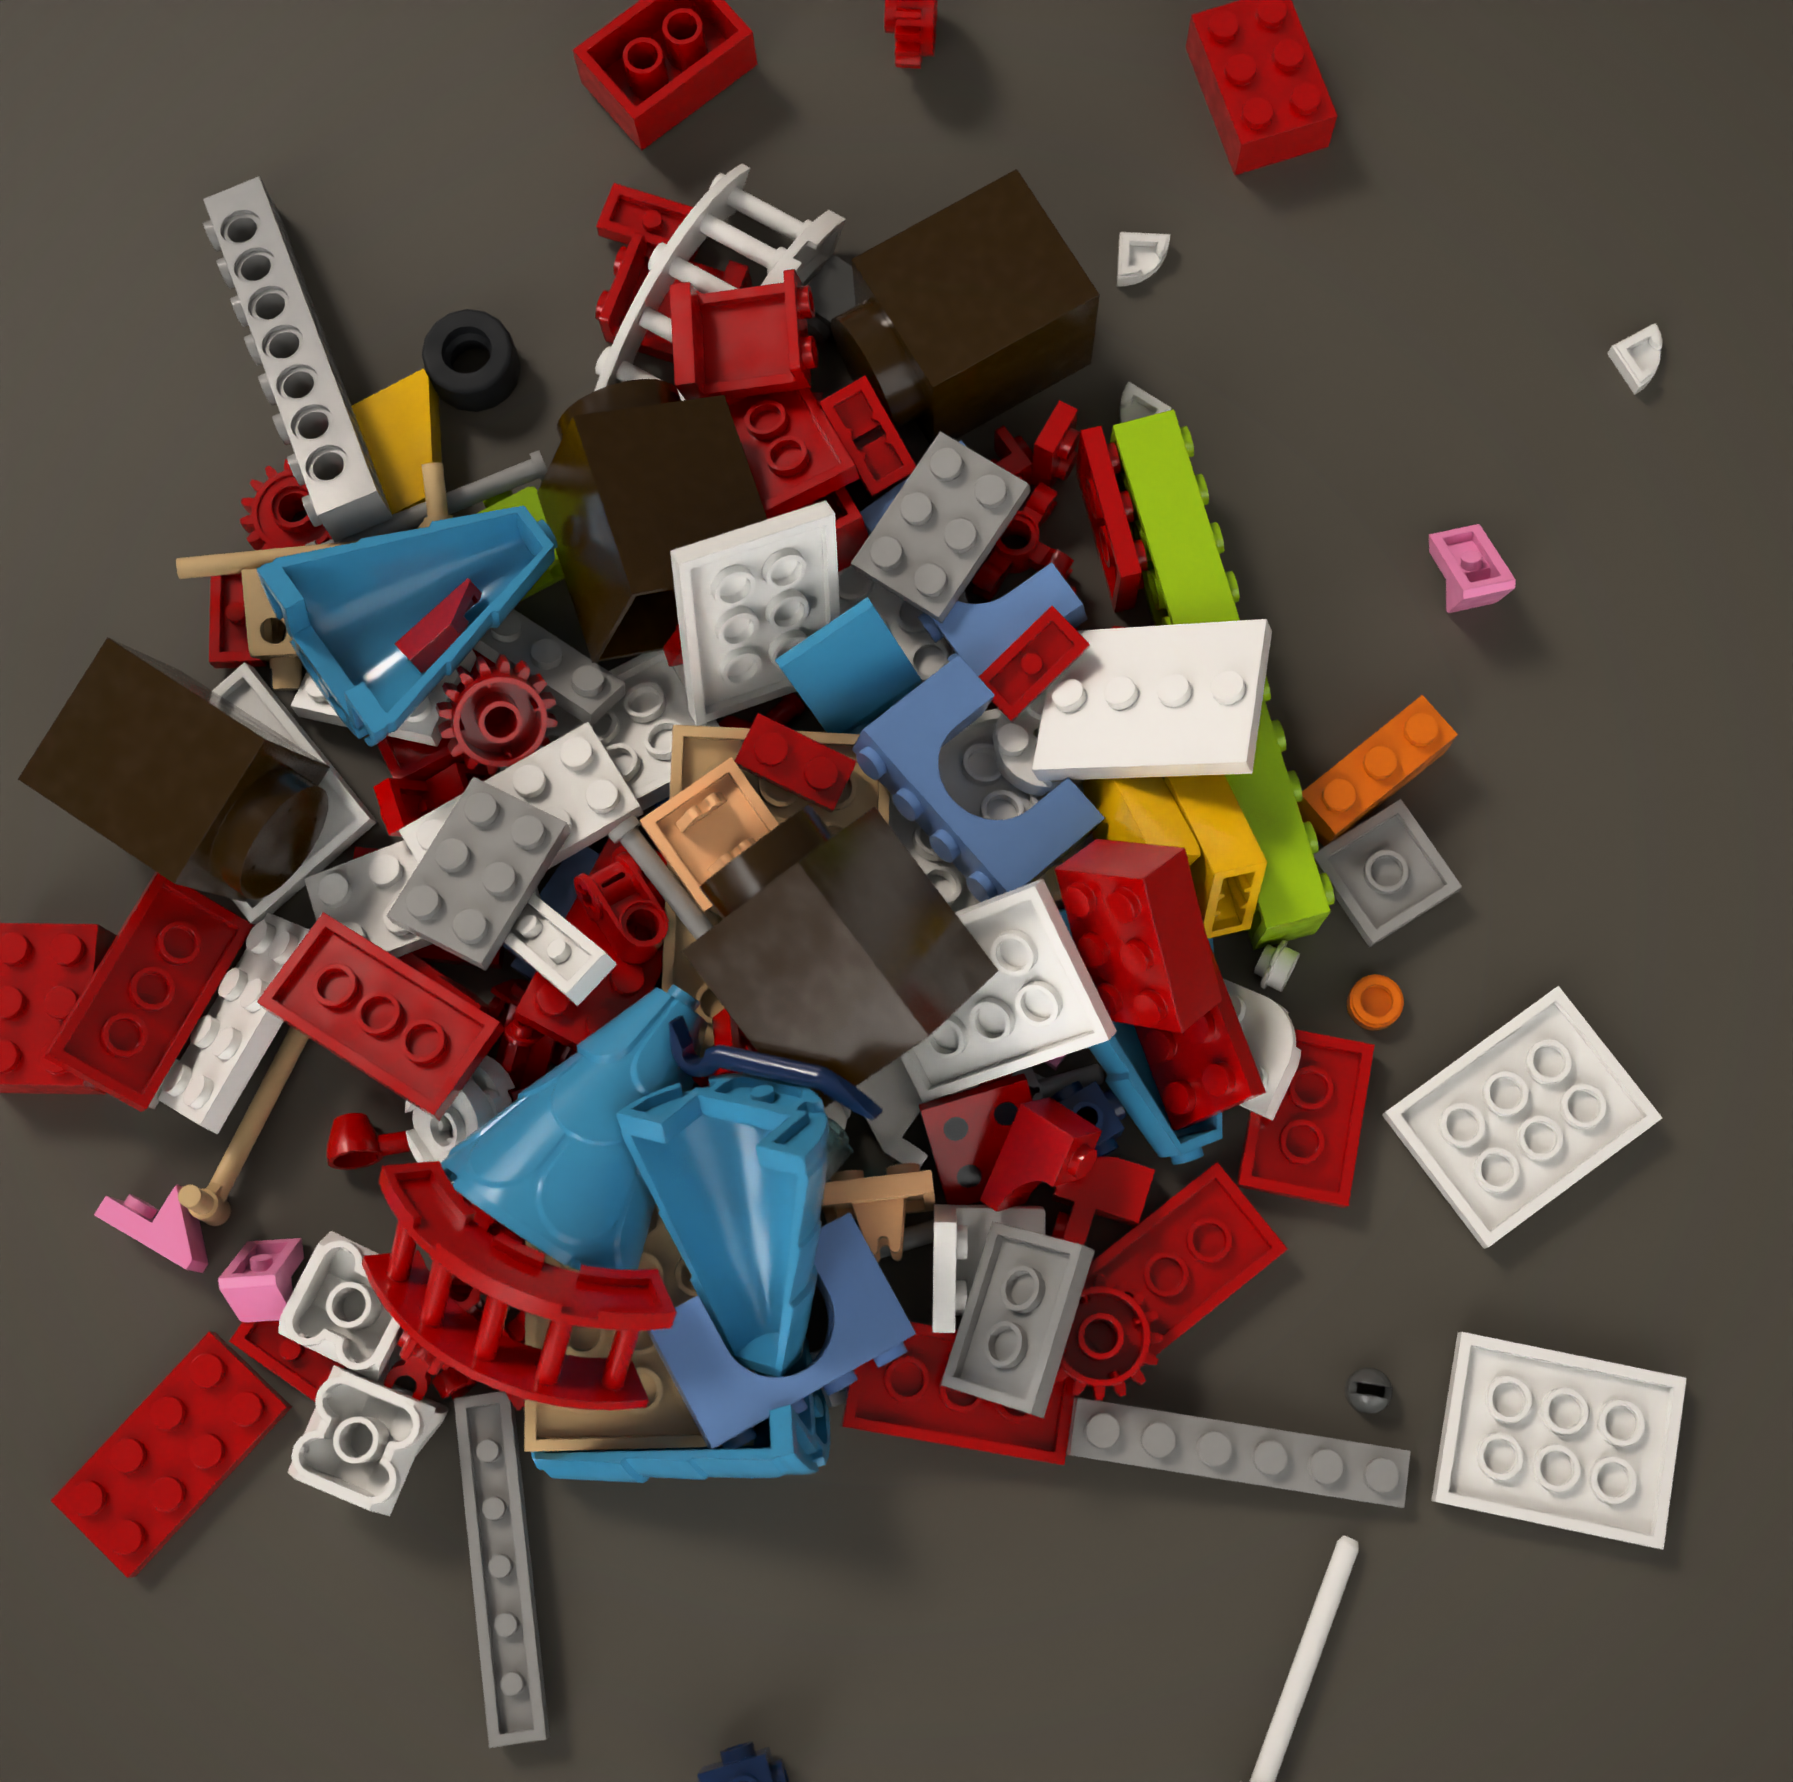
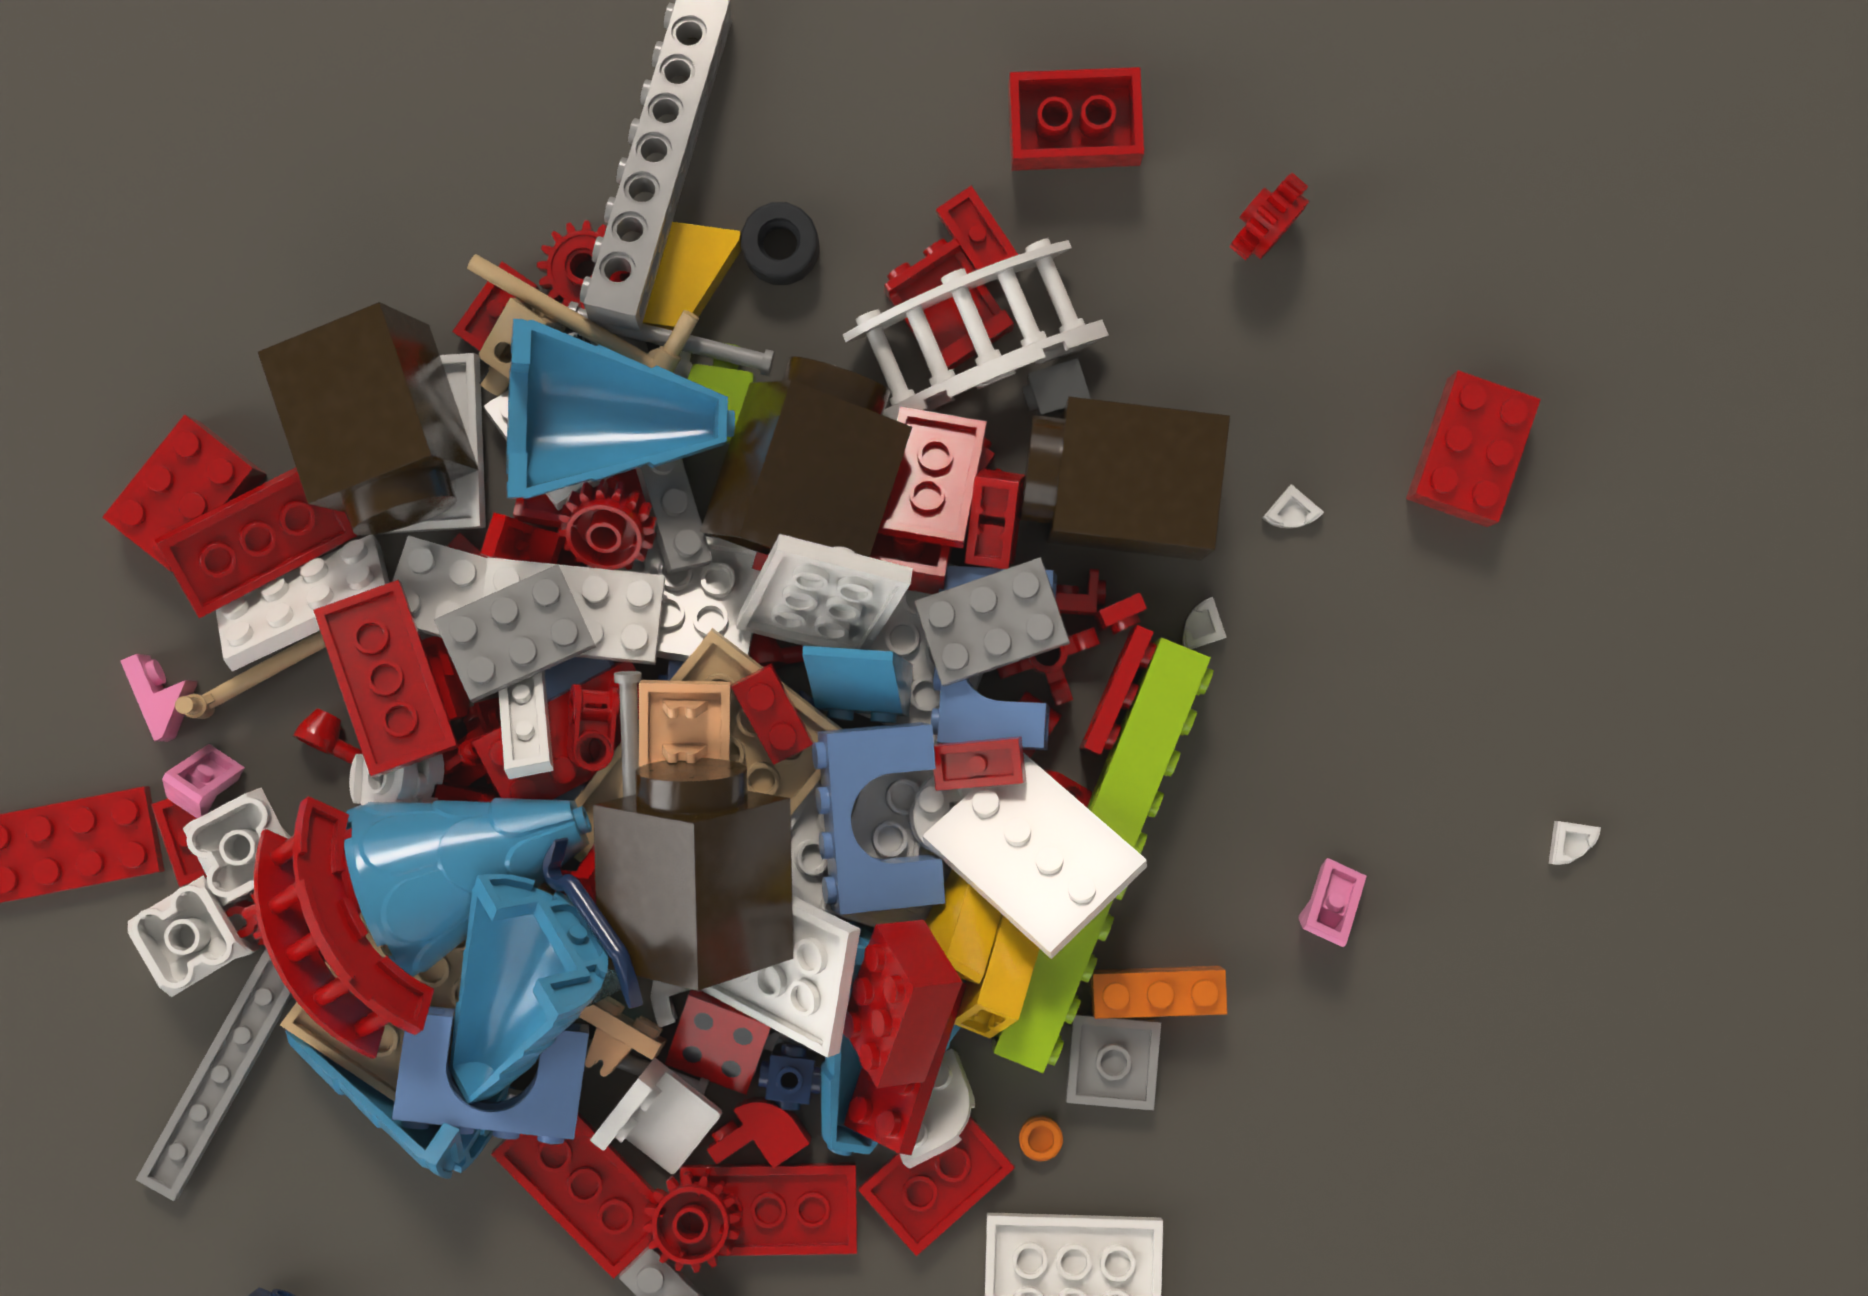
camera: 30 degrees right, 10 degrees up
(439, 628) = (610, 439): red tile -> none
(742, 339) = (959, 388): red panel -> none
(1018, 1318) = (646, 1175): light grey plate -> none
(1042, 1145) = (746, 1082): red arch -> none
(1276, 965) = (994, 1068): white plate -> none

